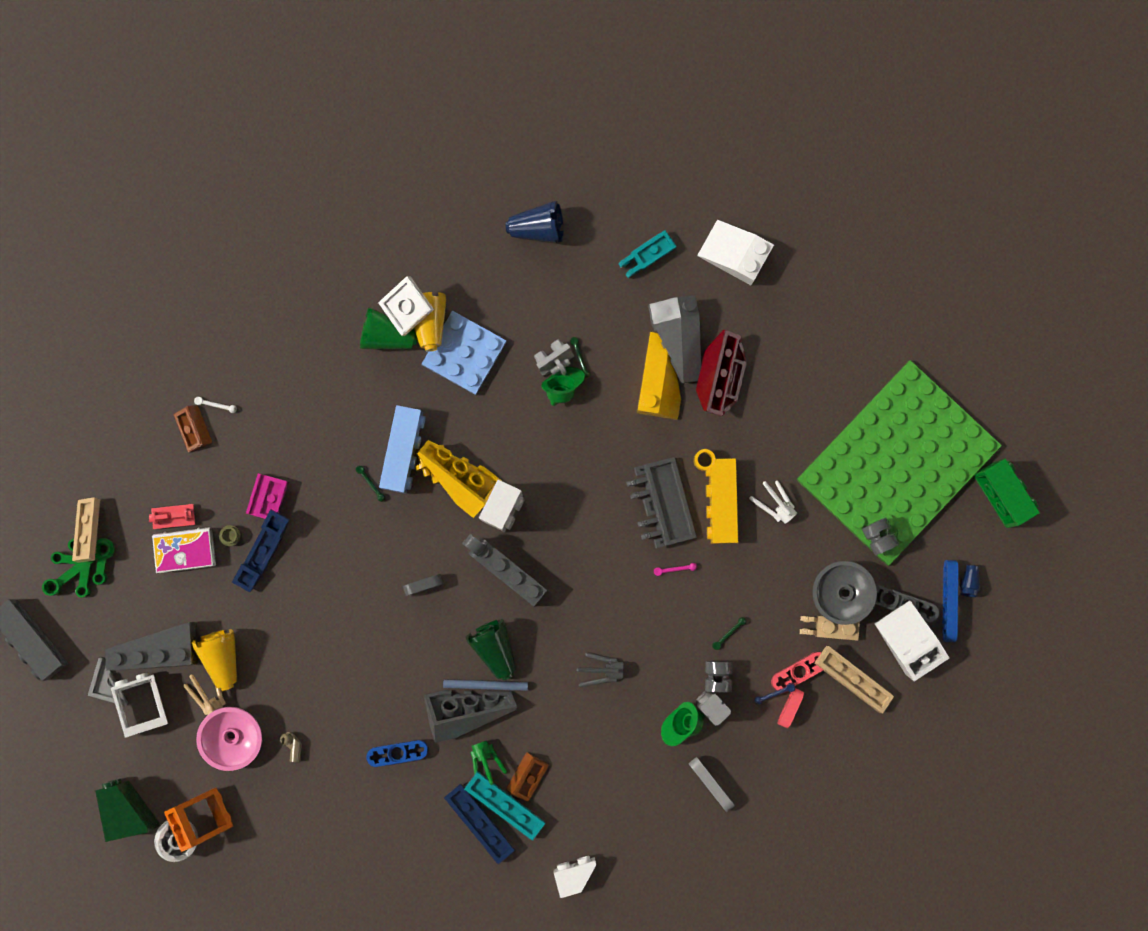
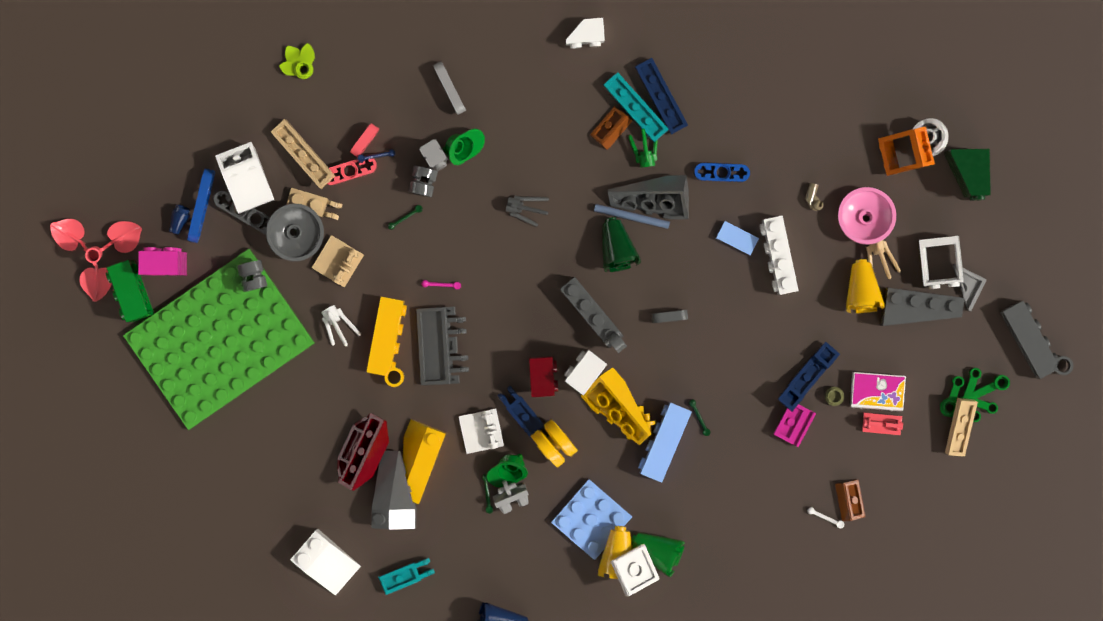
camera: 165 degrees left, 5 degrees up
(316, 675) = (780, 256): none -> white brick
(367, 684) = (737, 238): none -> light blue tile
(521, 421) = (556, 441): none -> yellow wheel
(546, 491) = (542, 376): none -> dark red brick
(560, 449) = (522, 413): none -> dark blue hinge
(600, 421) = (481, 431): none -> white hinge
(791, 571) = (337, 261): none -> tan hinge
(881, 781) = (297, 59): none -> lime plate
(980, 531) = (158, 262): none -> dark pink piece
(1083, 540) = (124, 236): none -> coral plant

